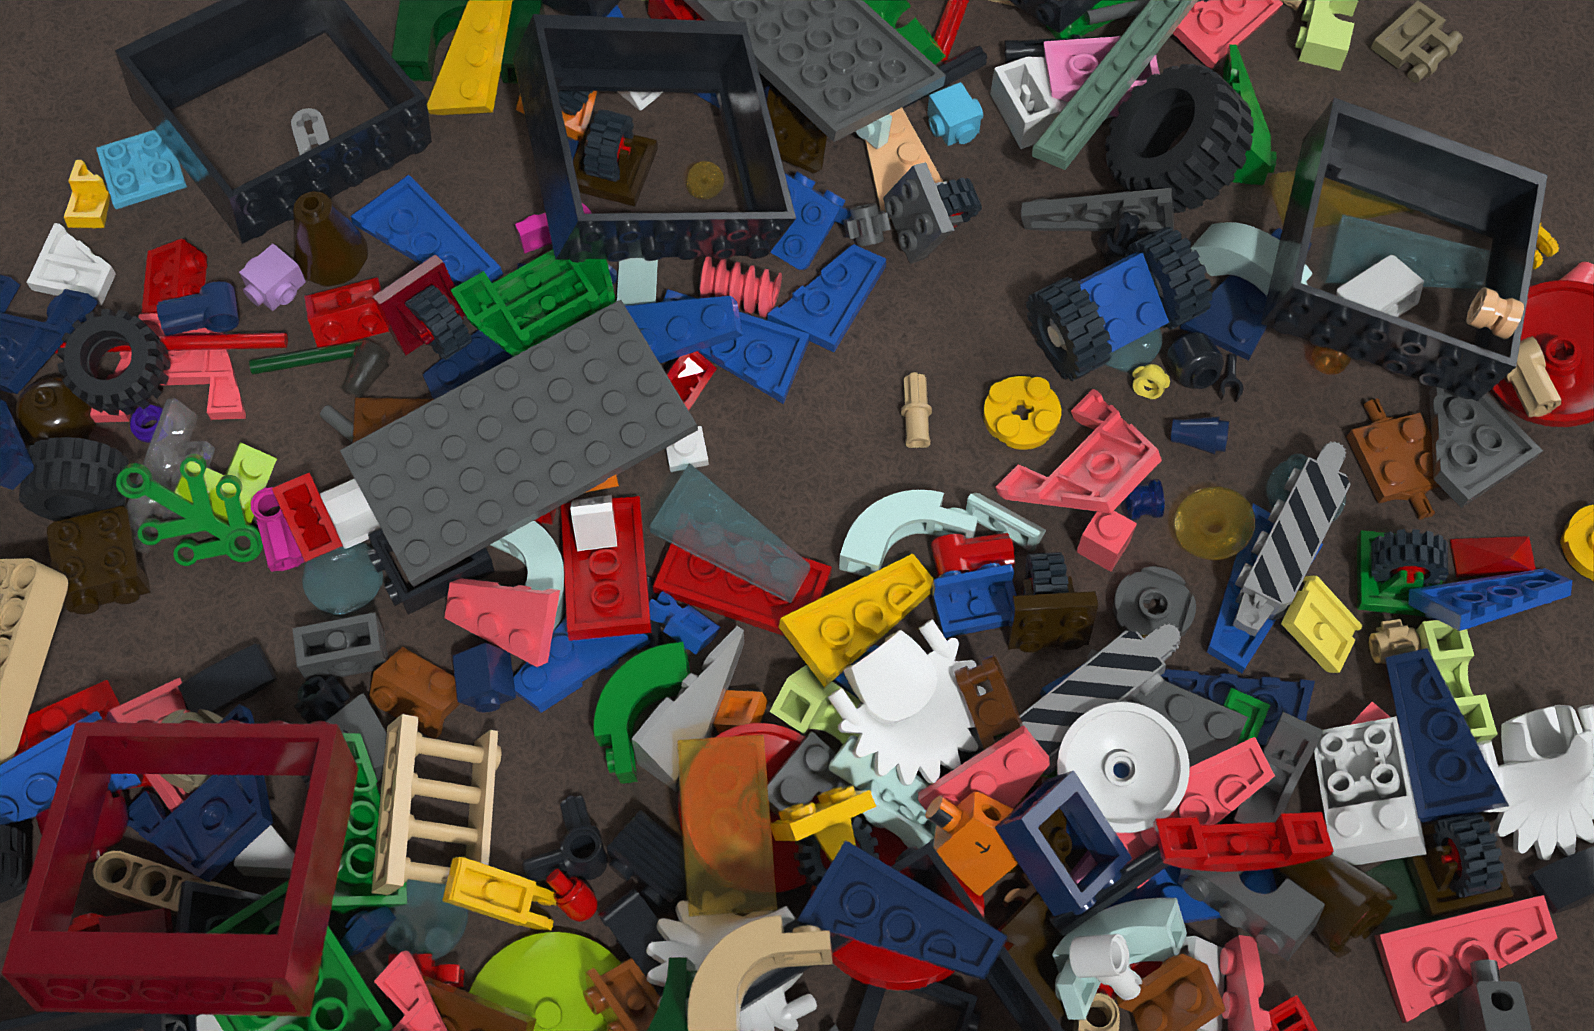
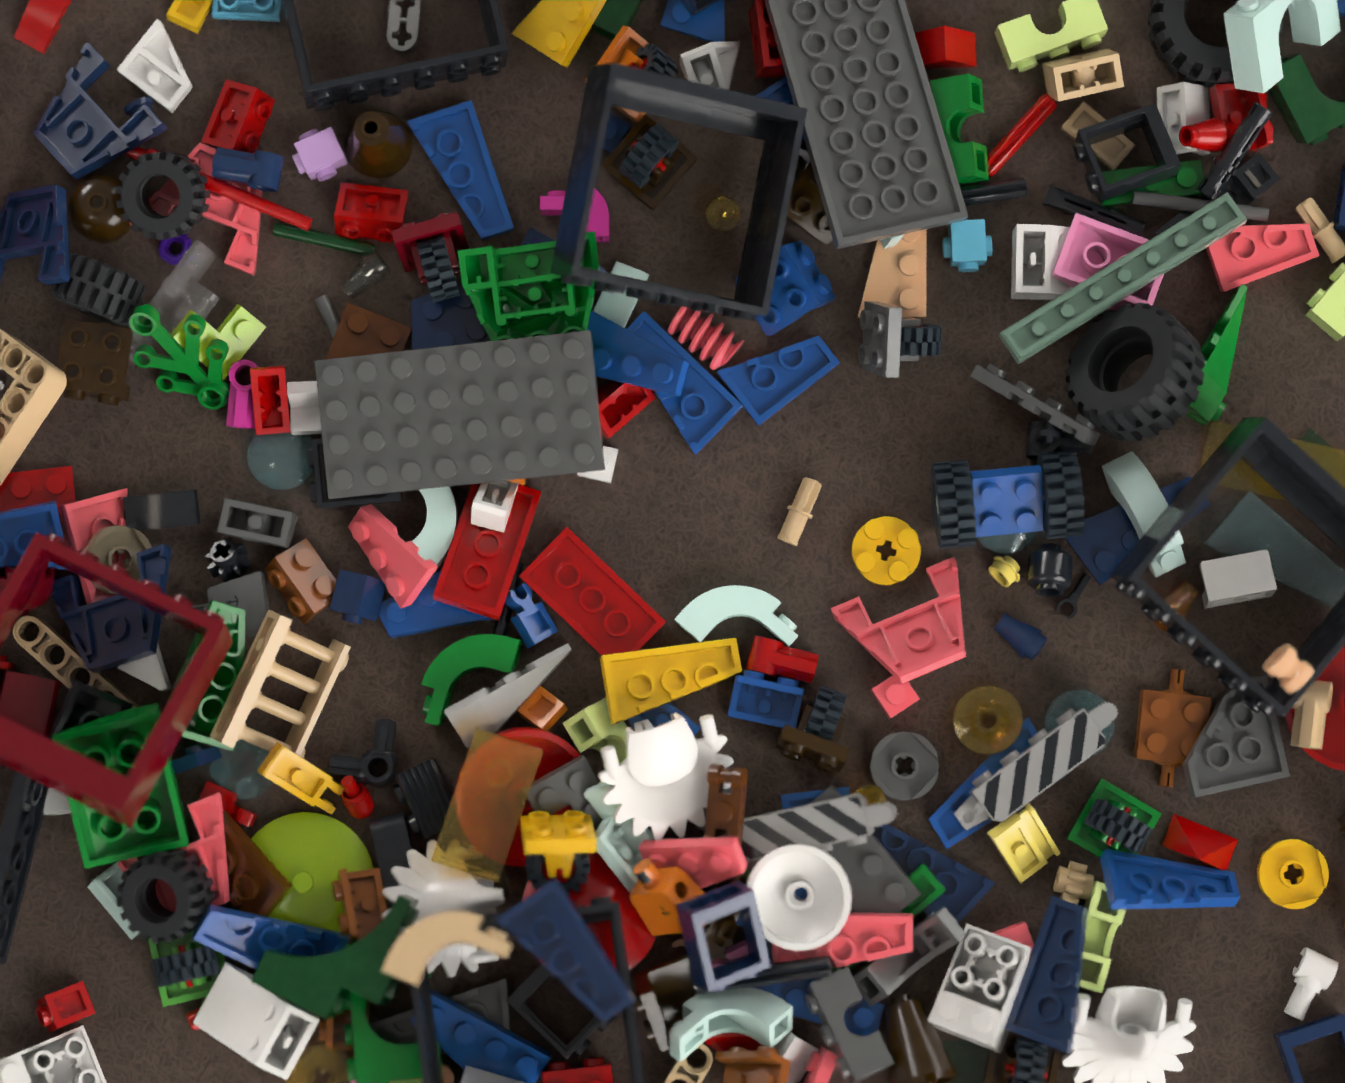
camera: 25 degrees right, 20 degrees up
(724, 534) = (591, 556): clear light blue wing -> none
(867, 224) = (839, 321): dark grey gear -> none
(1004, 521) = (825, 639): light aqua slope -> none
(1106, 960) = (711, 1032): white pin -> none
(1146, 500) = (944, 677): clear blue wheel -> none
(1244, 846) = (857, 992): red slope -> none

